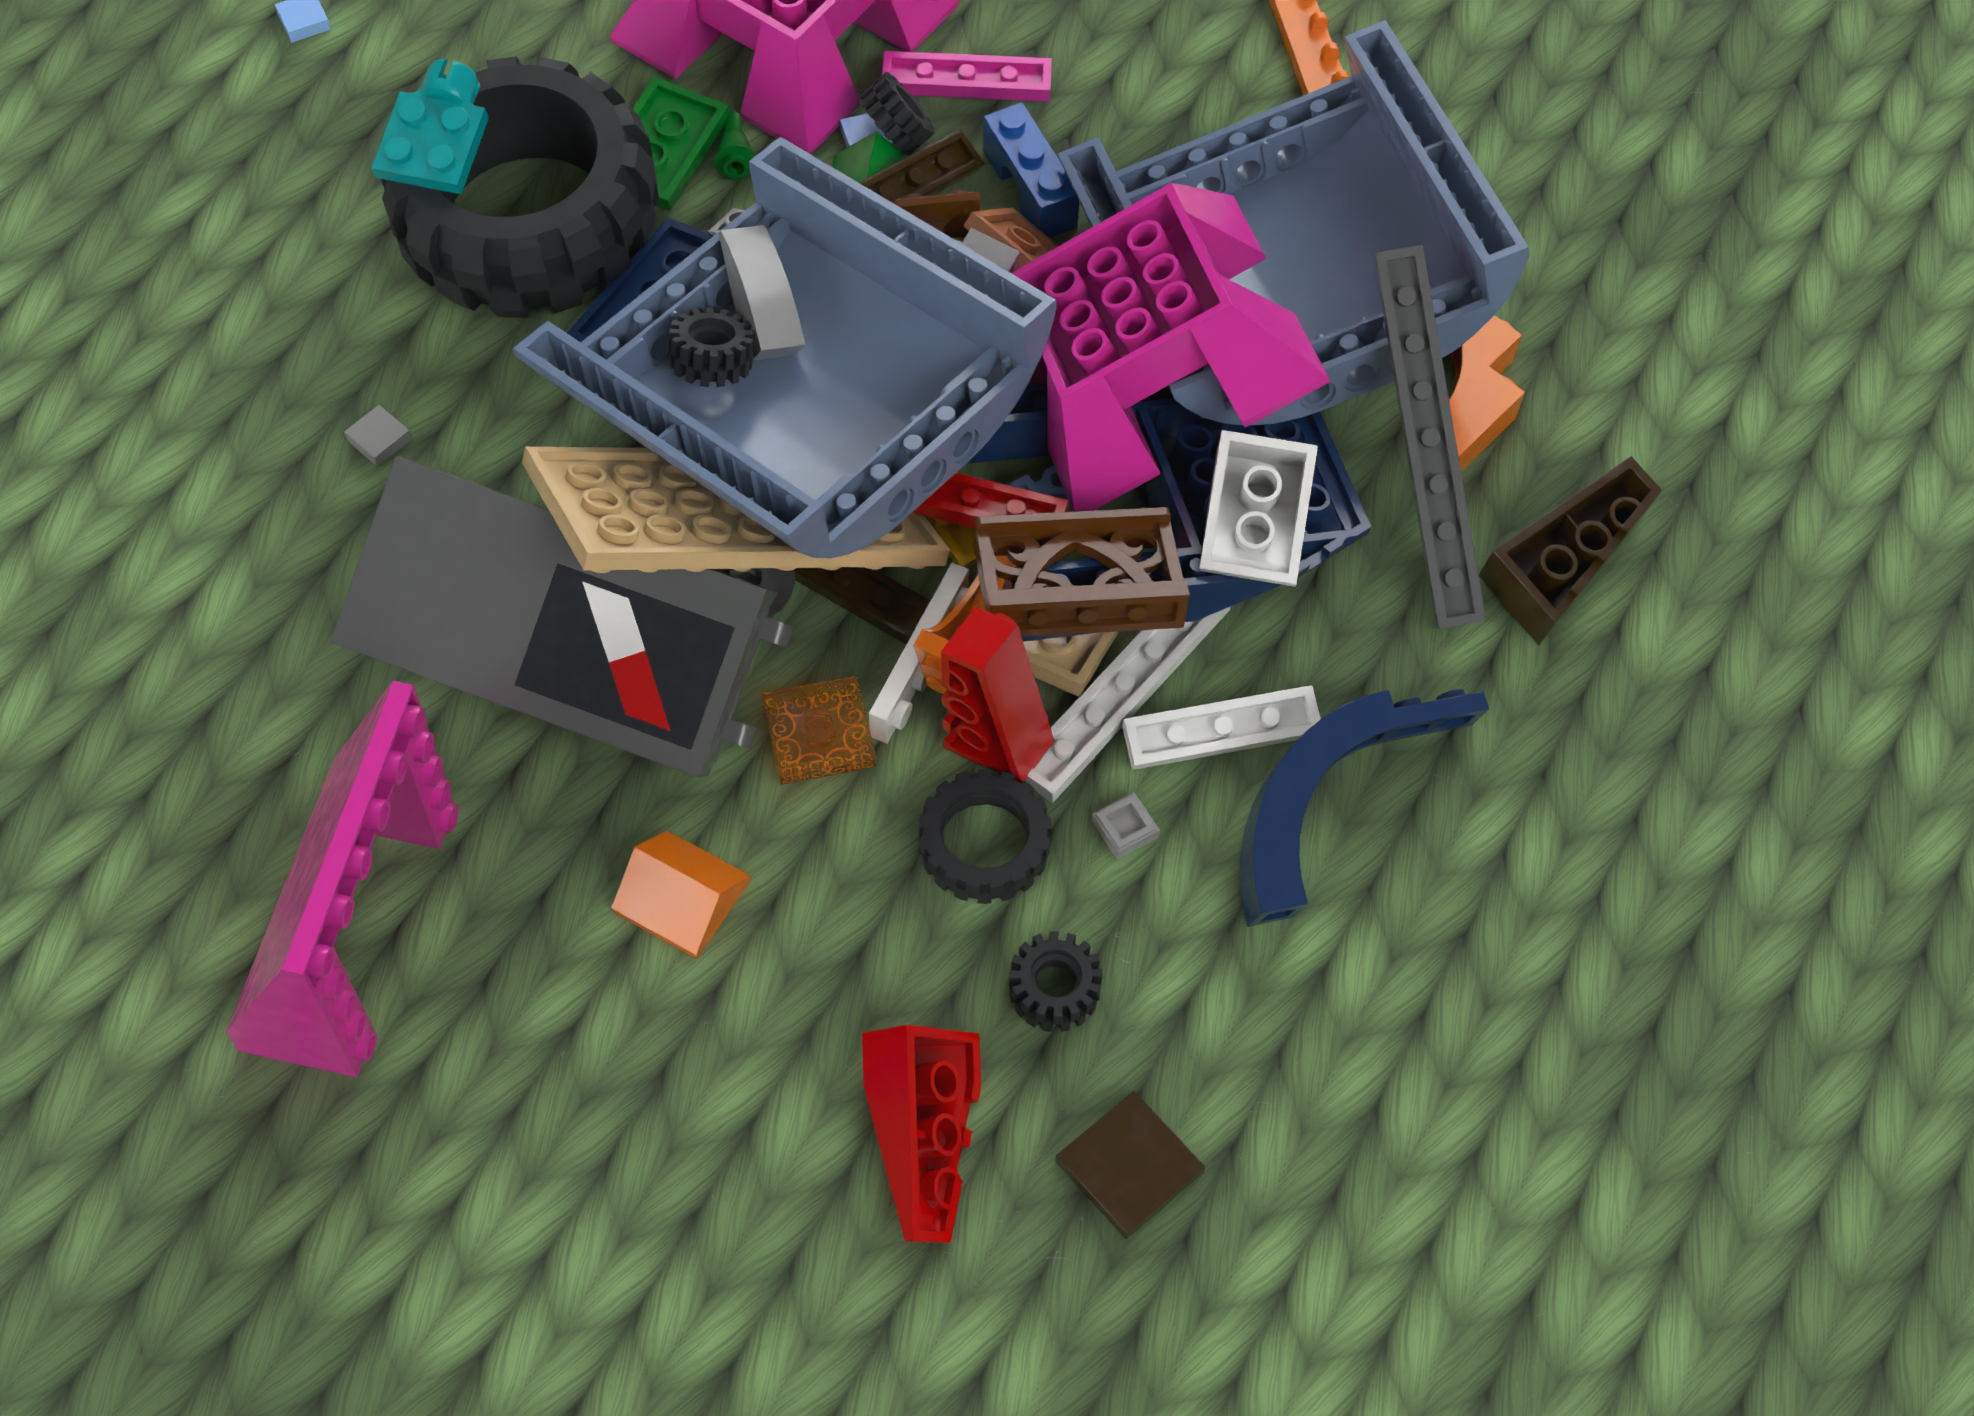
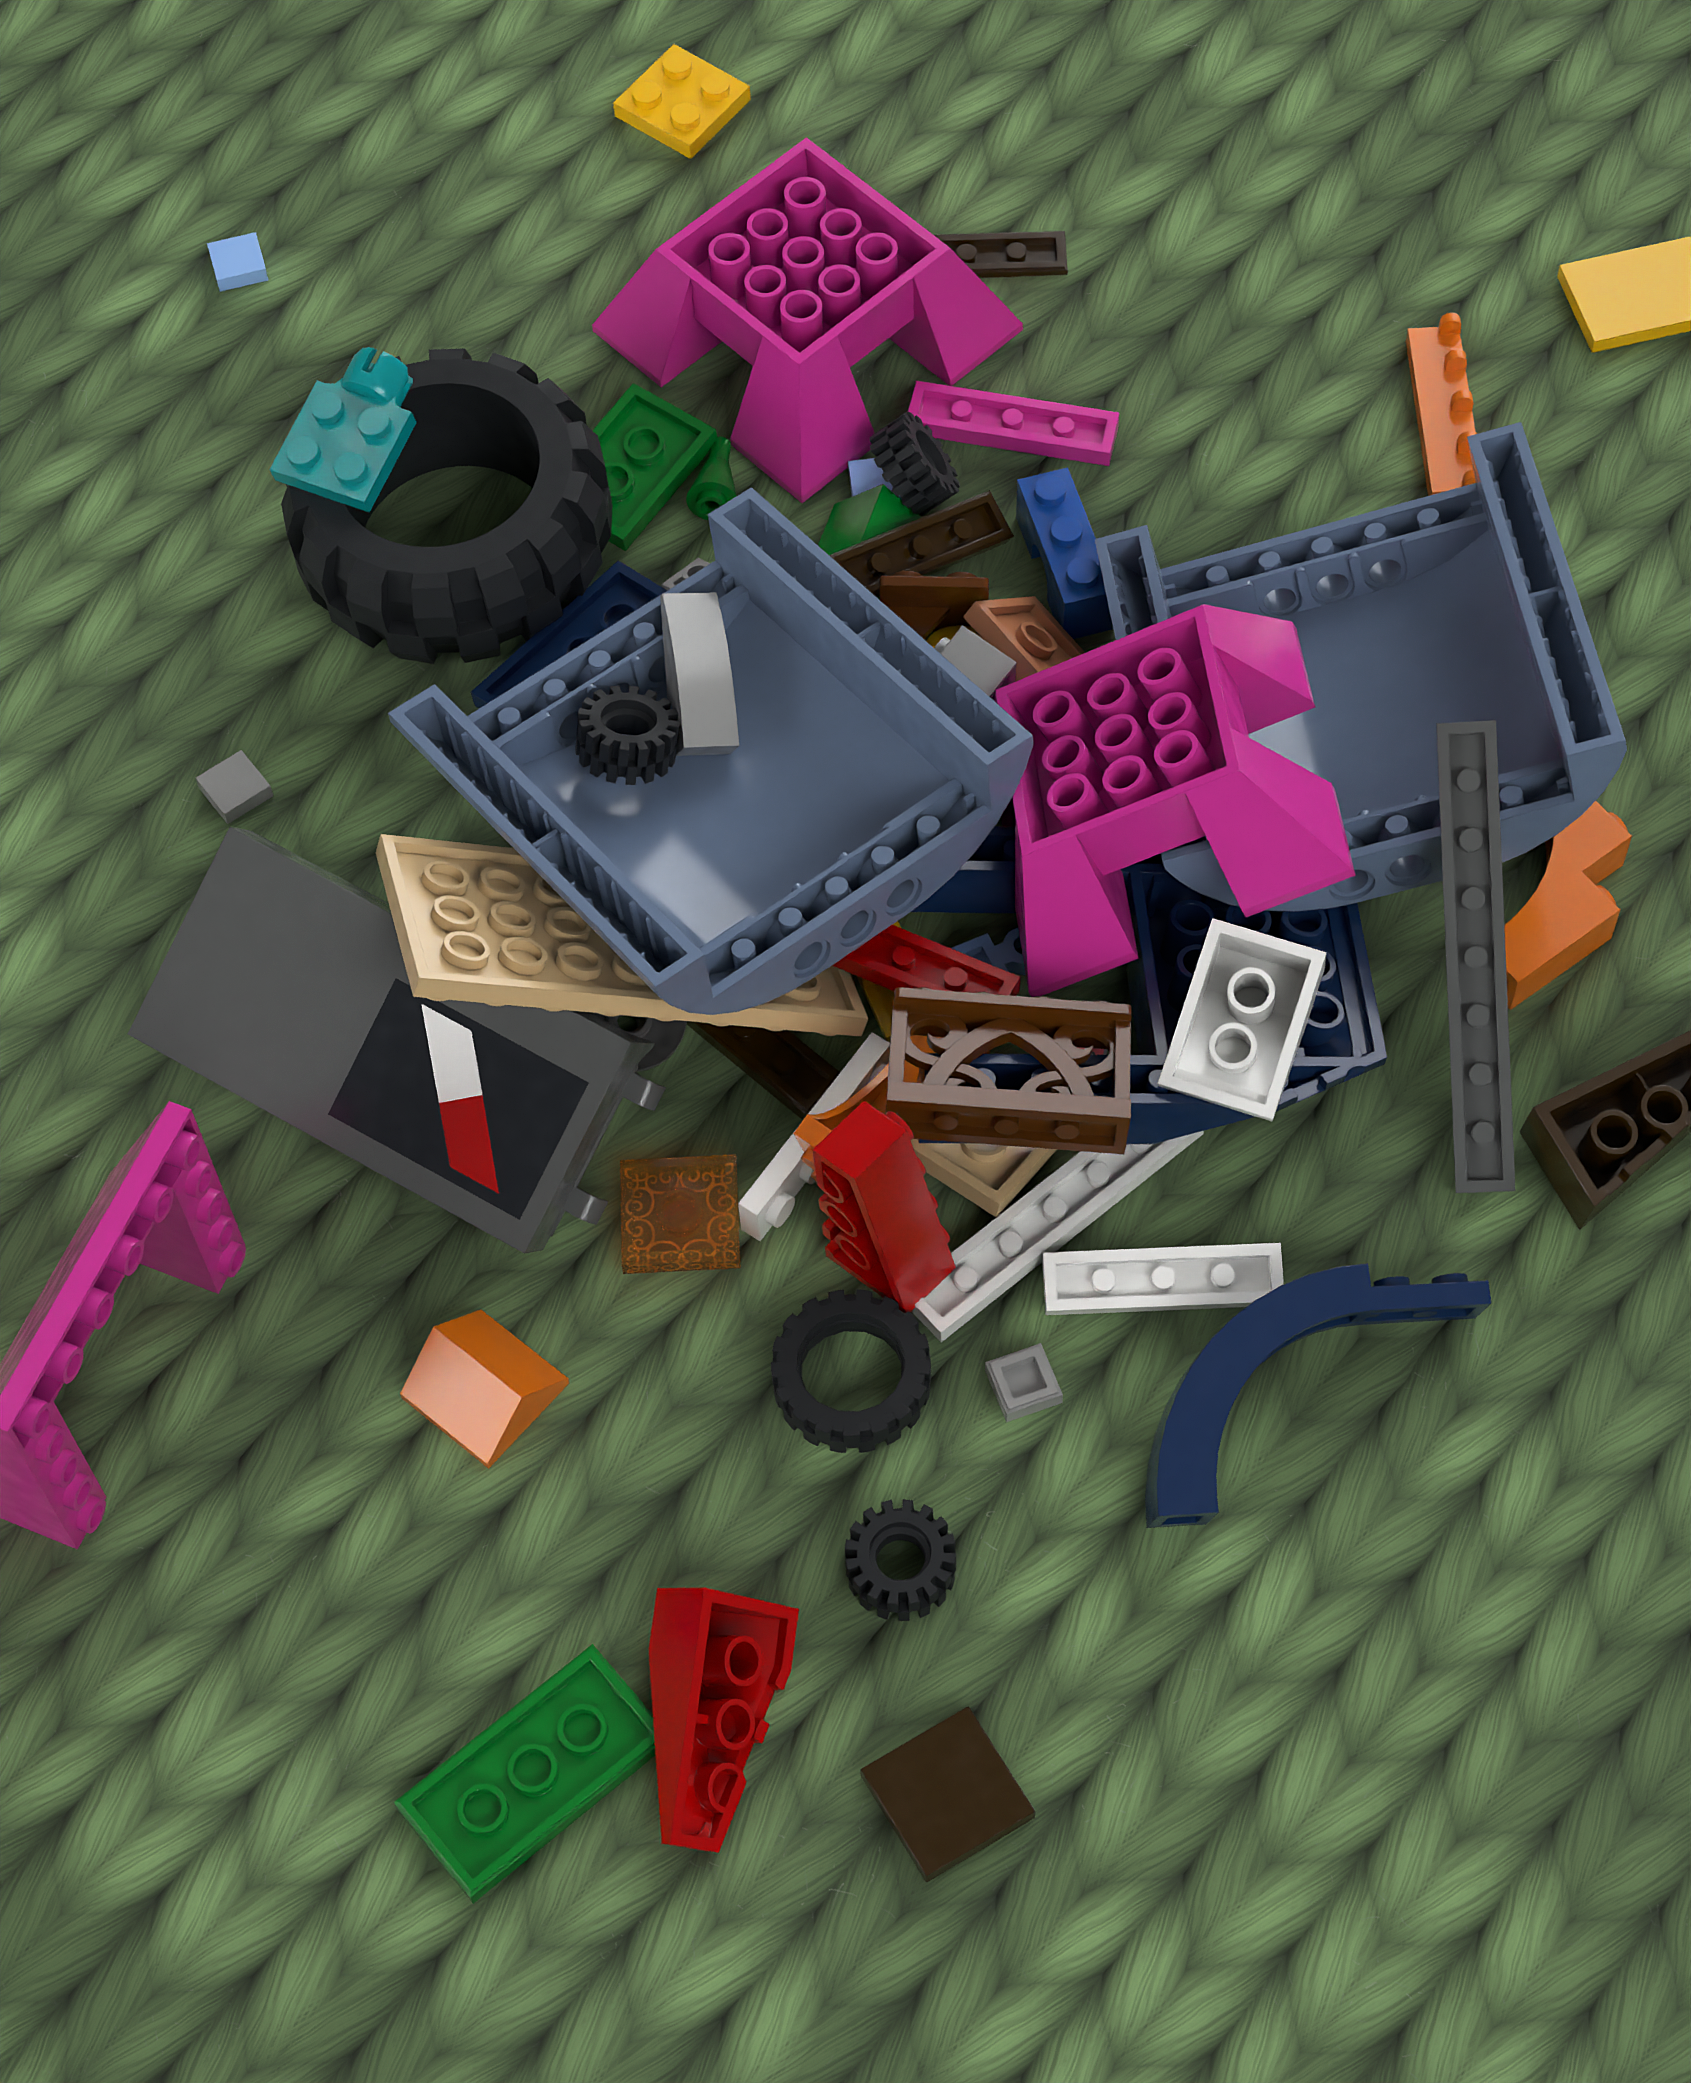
camera: 15 degrees right, 0 degrees up
(781, 1202) = (531, 1773): none -> green tile

